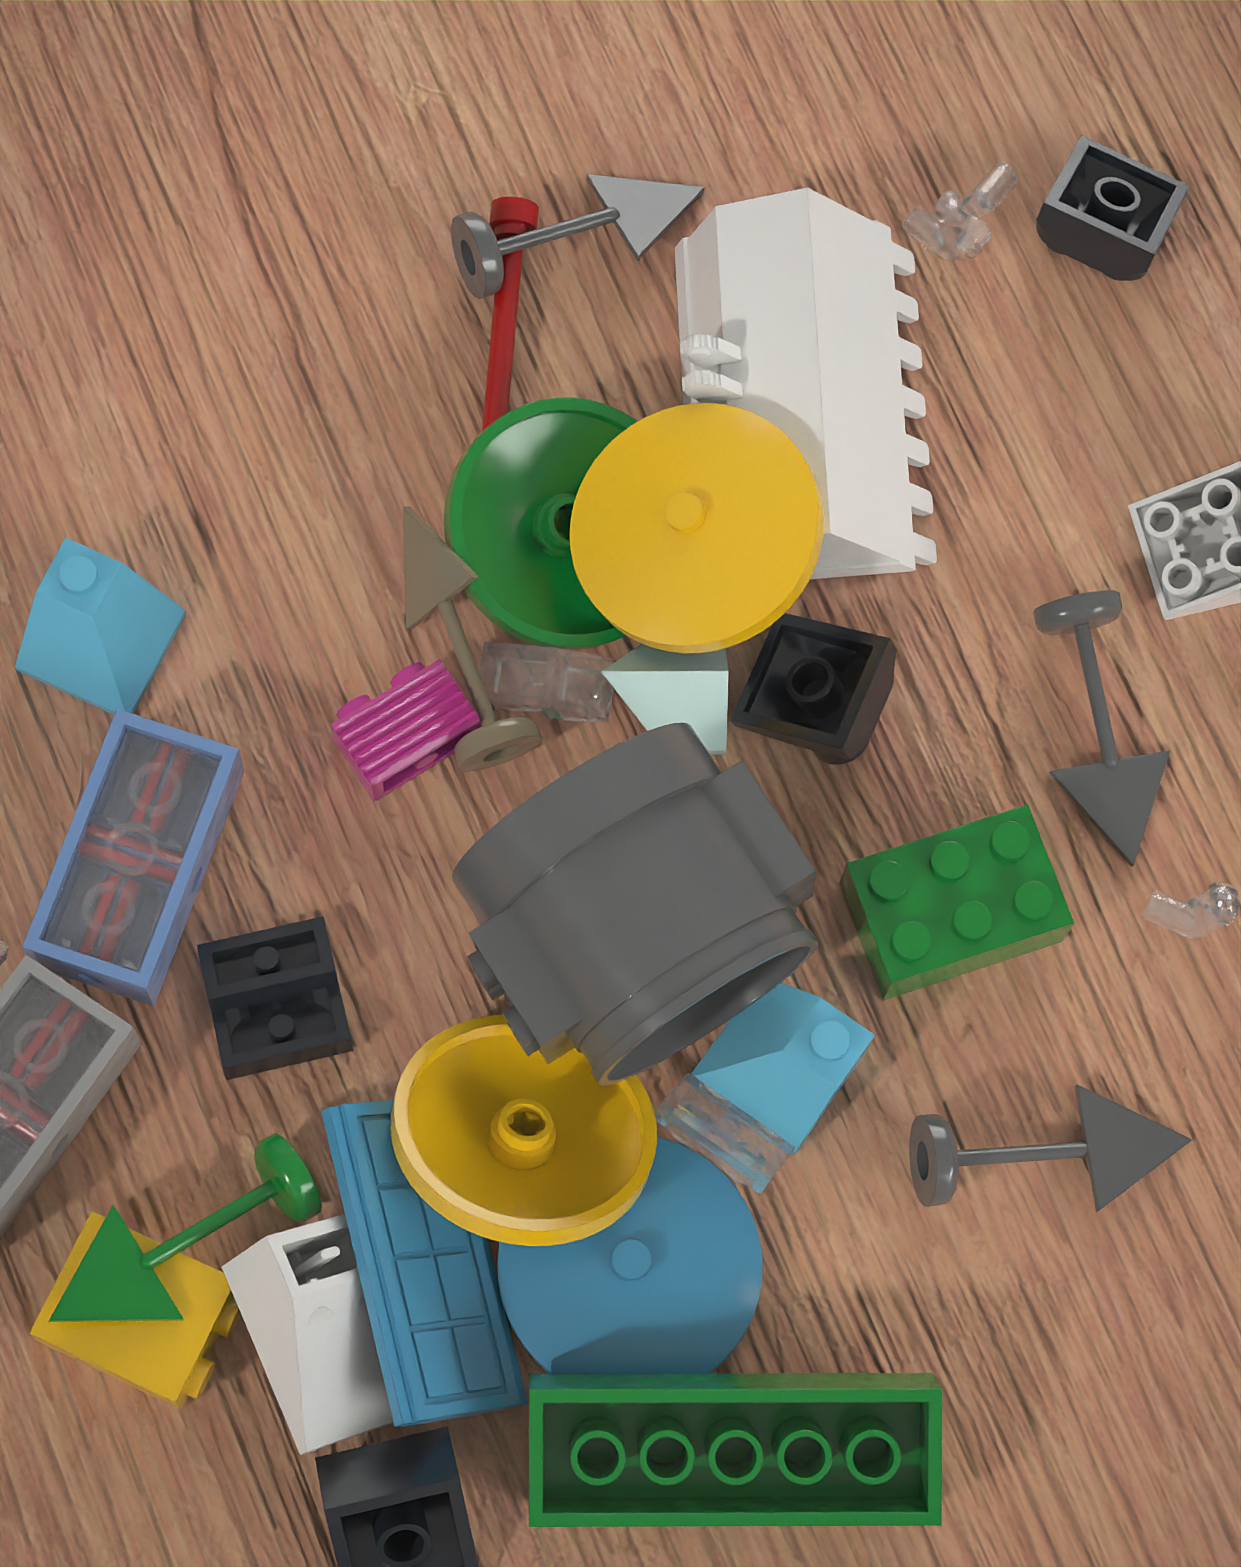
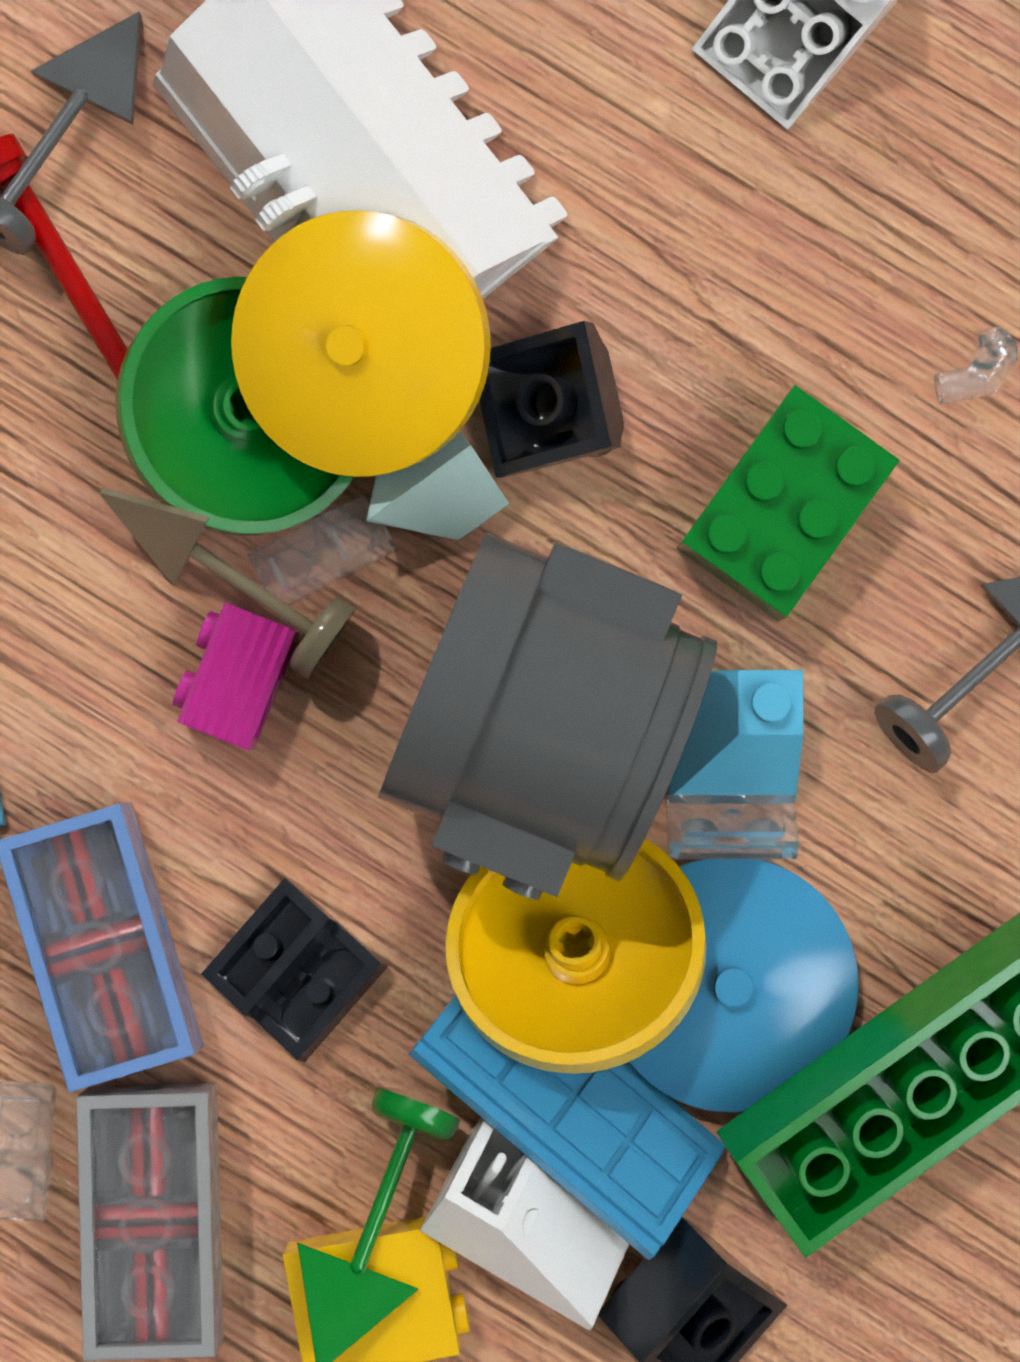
camera: 30 degrees left, 15 degrees up
(1117, 791) = (851, 309): dark grey piece -> none

